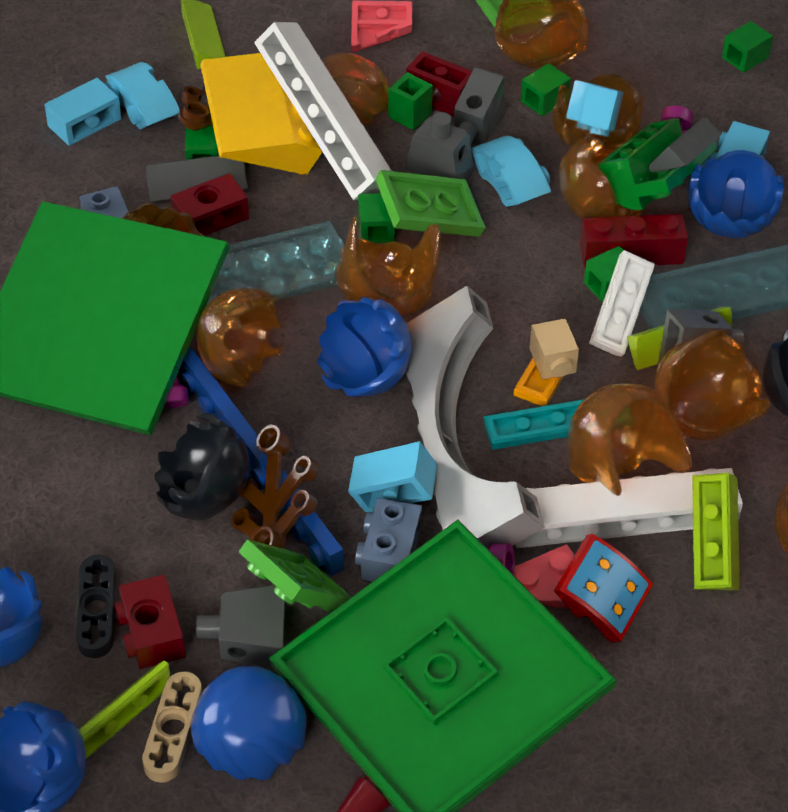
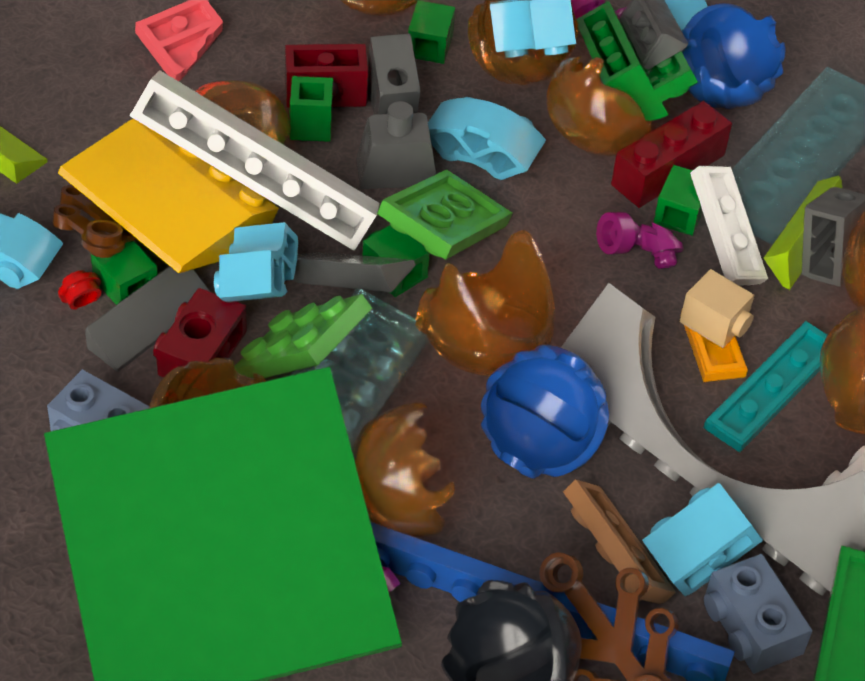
camera: 40 degrees left, 0 degrees up
(169, 144) = (80, 289): none -> red plate
(264, 225) = (302, 337): none -> bright green plate
(273, 175) = (257, 263): none -> medium azure brick
(332, 207) = (351, 271): none -> dark grey slope
(348, 439) = (616, 539): none -> medium nougat plate
(565, 288) = (619, 233): none -> magenta arm

